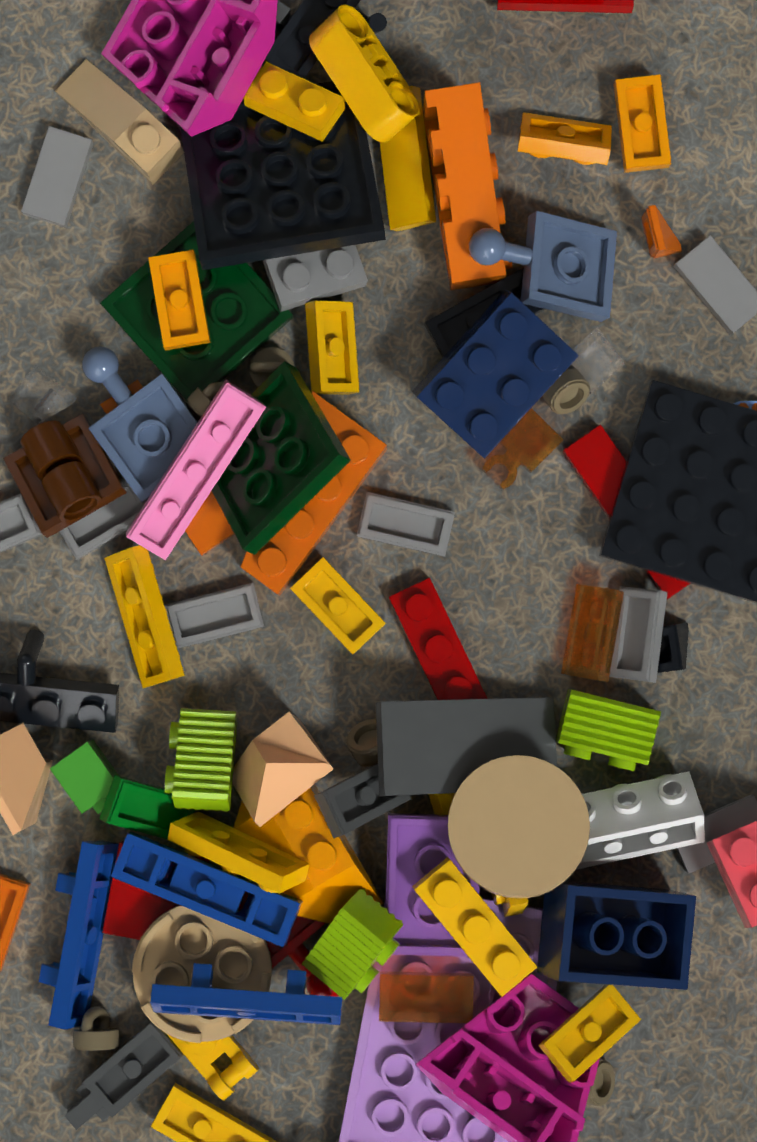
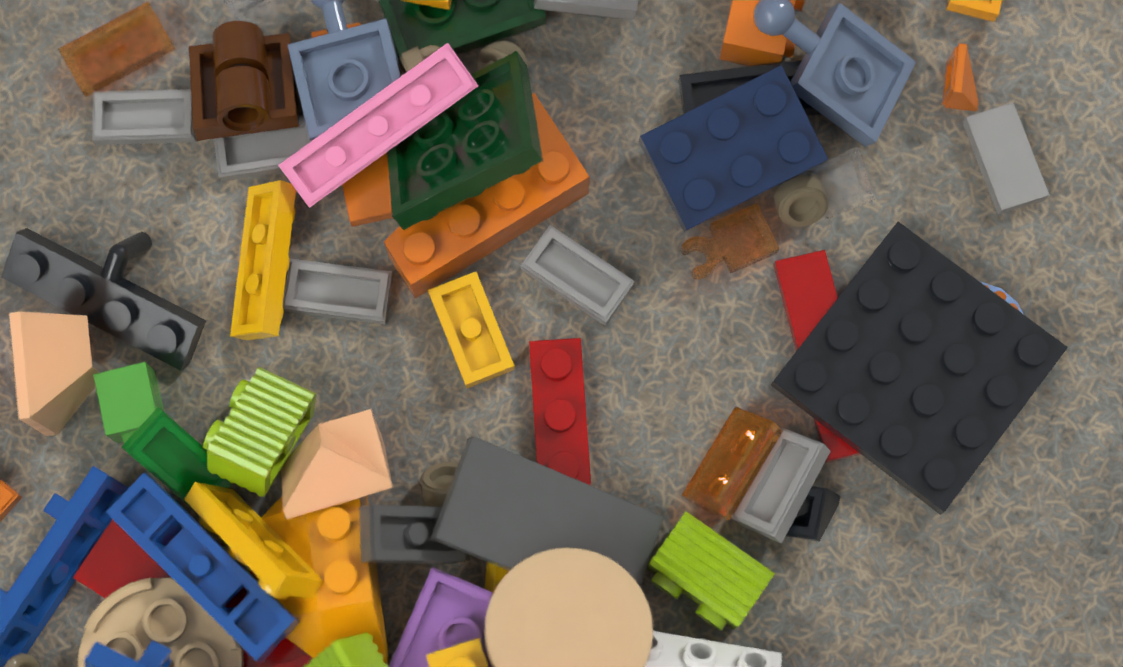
camera: 25 degrees right, 10 degrees down
(332, 347) = (573, 65): yellow plate -> none

